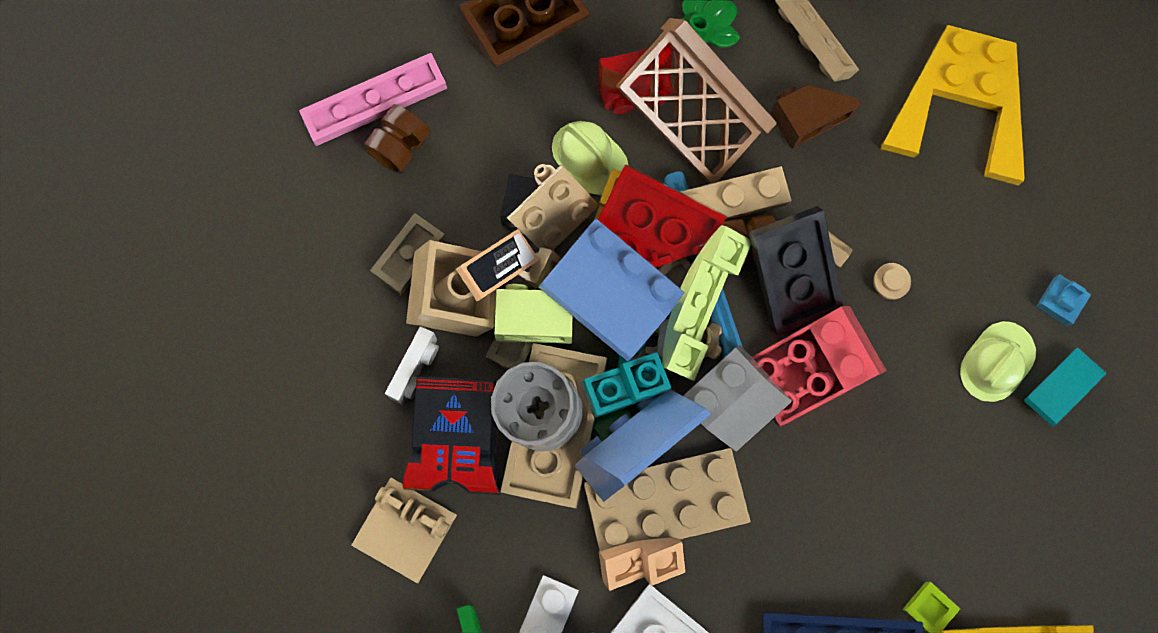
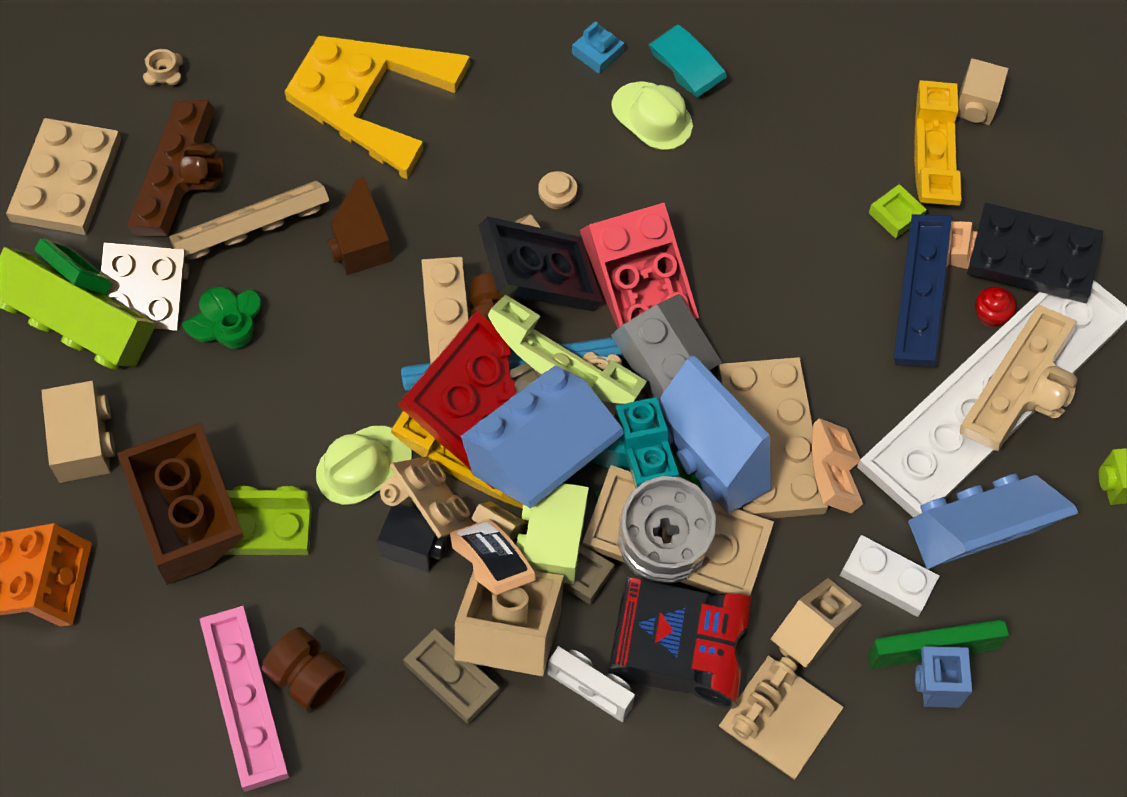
camera: 80 degrees left, 15 degrees down
(489, 554) = (815, 622): none -> tan slope
(522, 91) = (272, 521): none -> lime bracket
(614, 69) = (288, 393): red slope -> none
(712, 75) = (314, 302): medium nougat fence -> none

